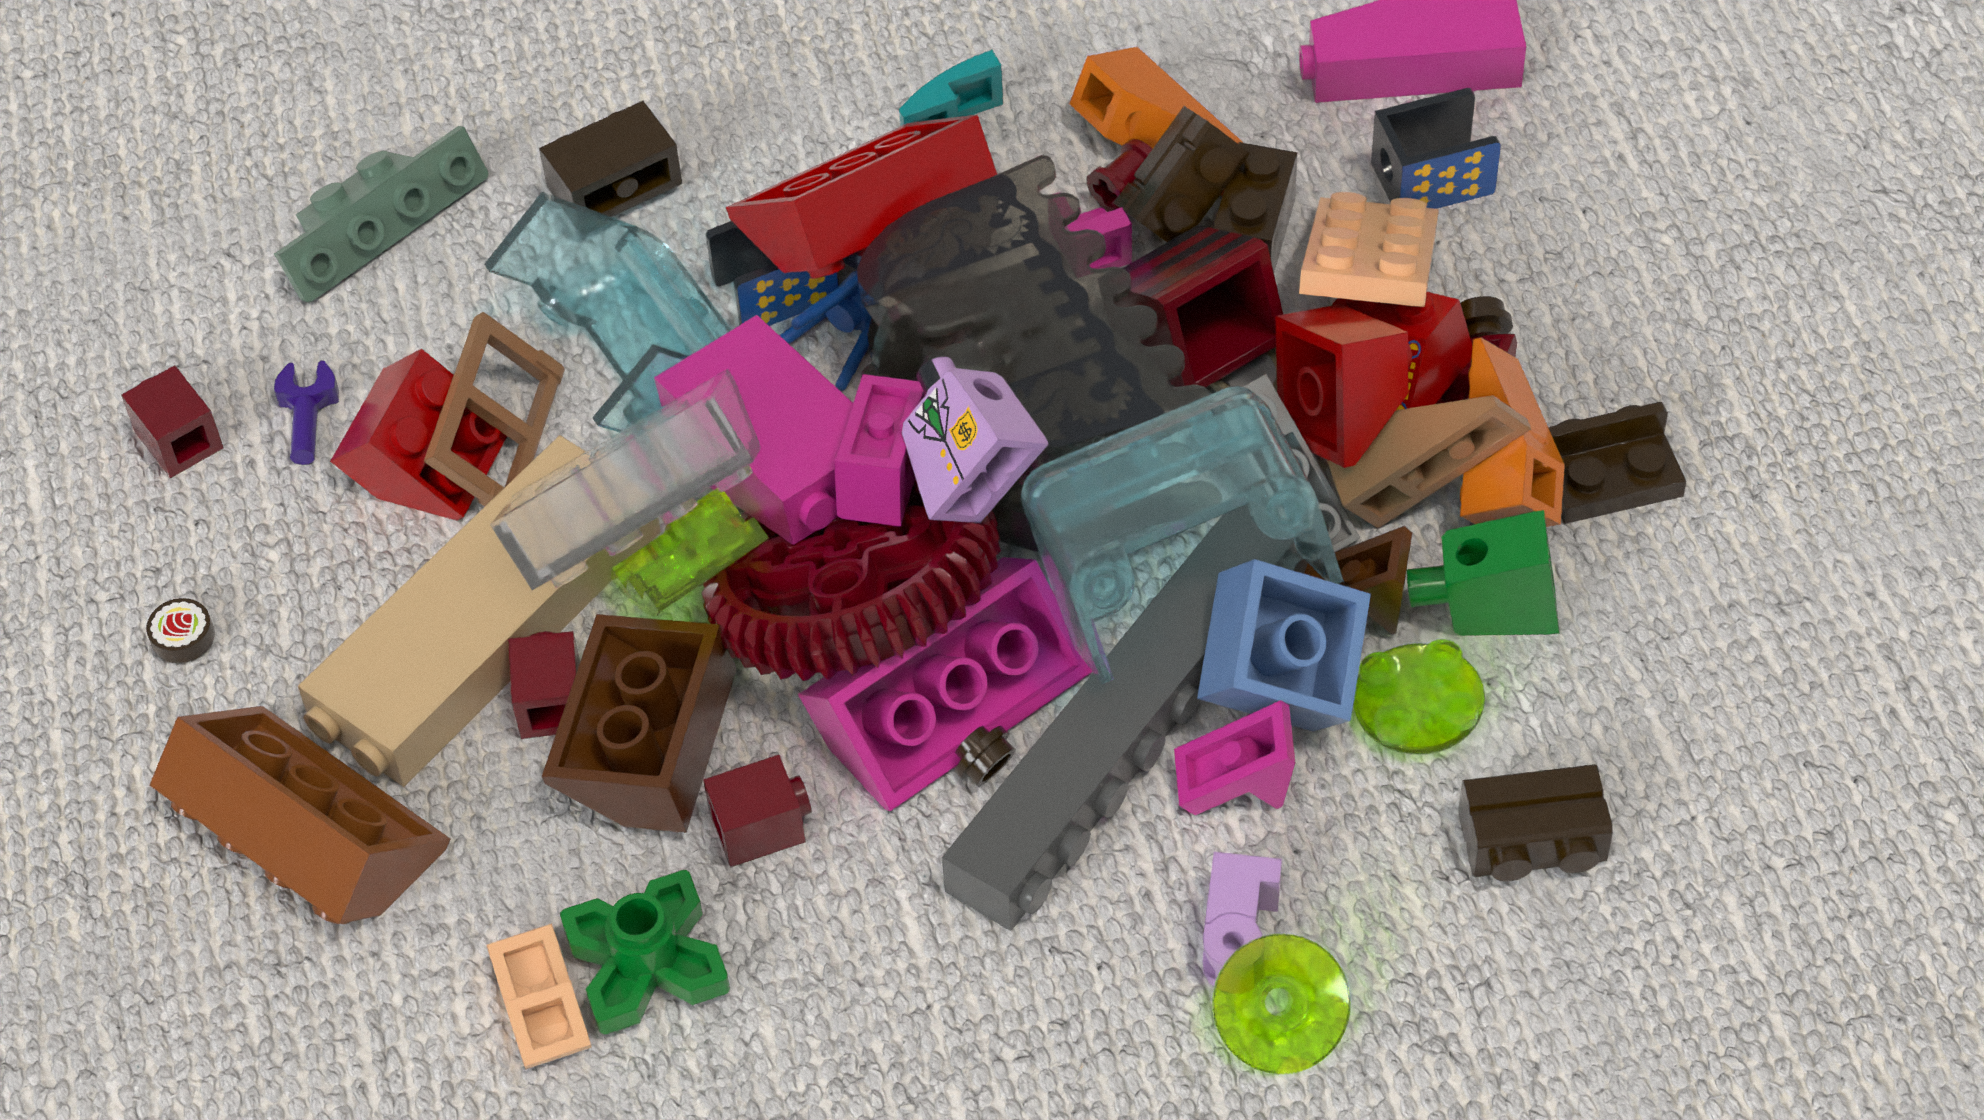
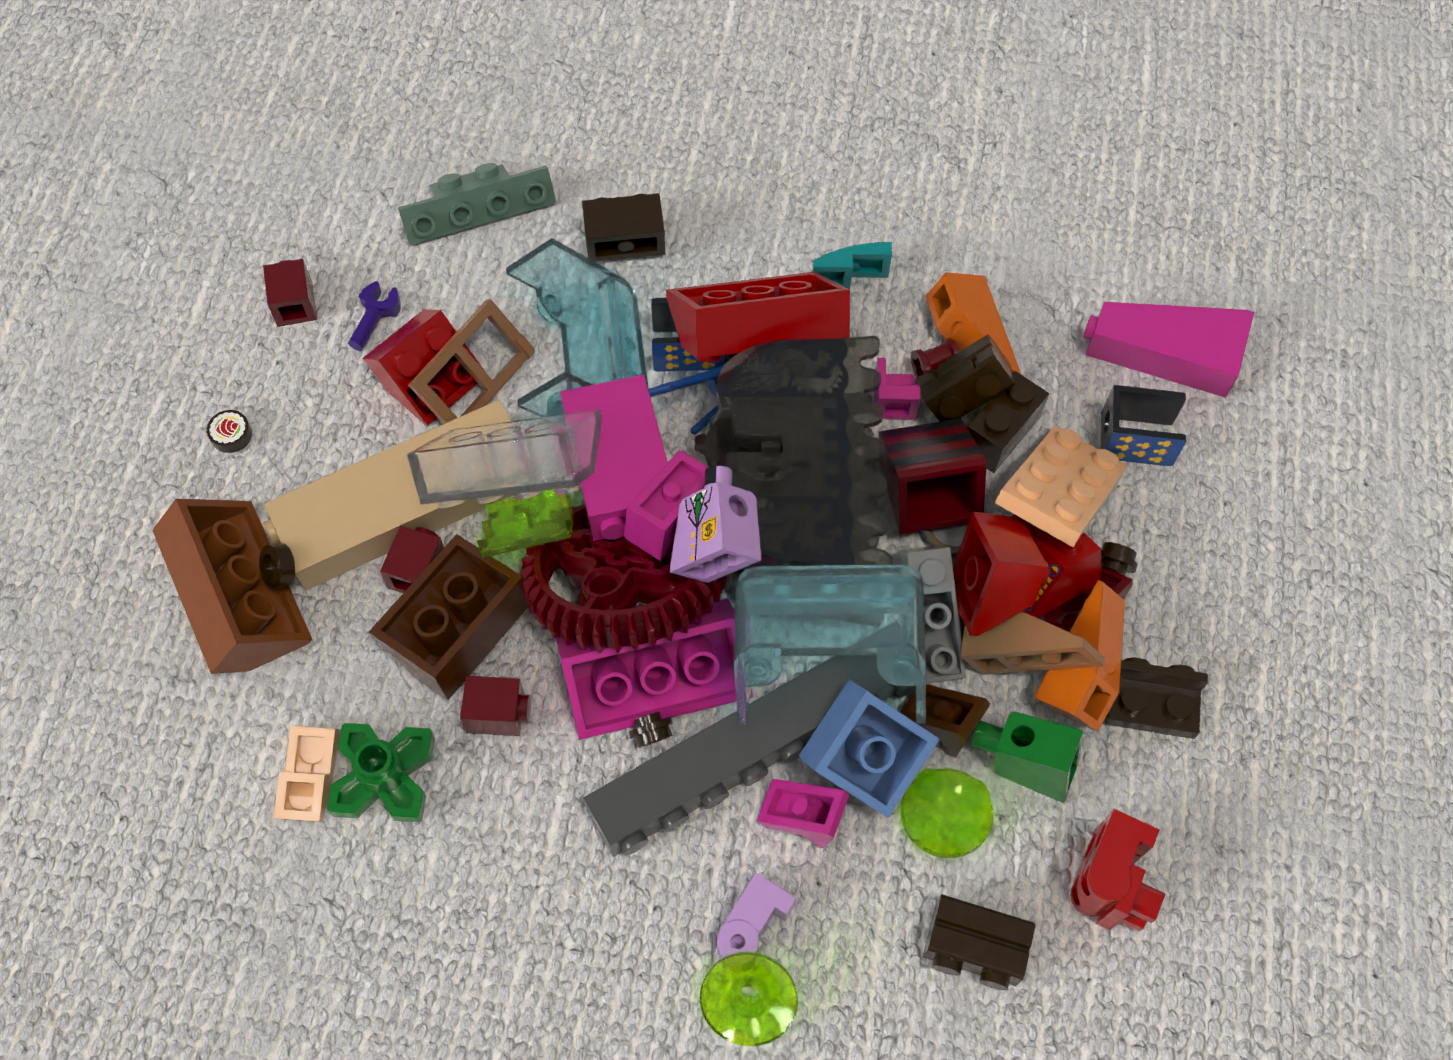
camera: 20 degrees right, 10 degrees up
(360, 754) = (277, 565): none -> dark brown tile
(1660, 674) = (1108, 879): none -> red hips

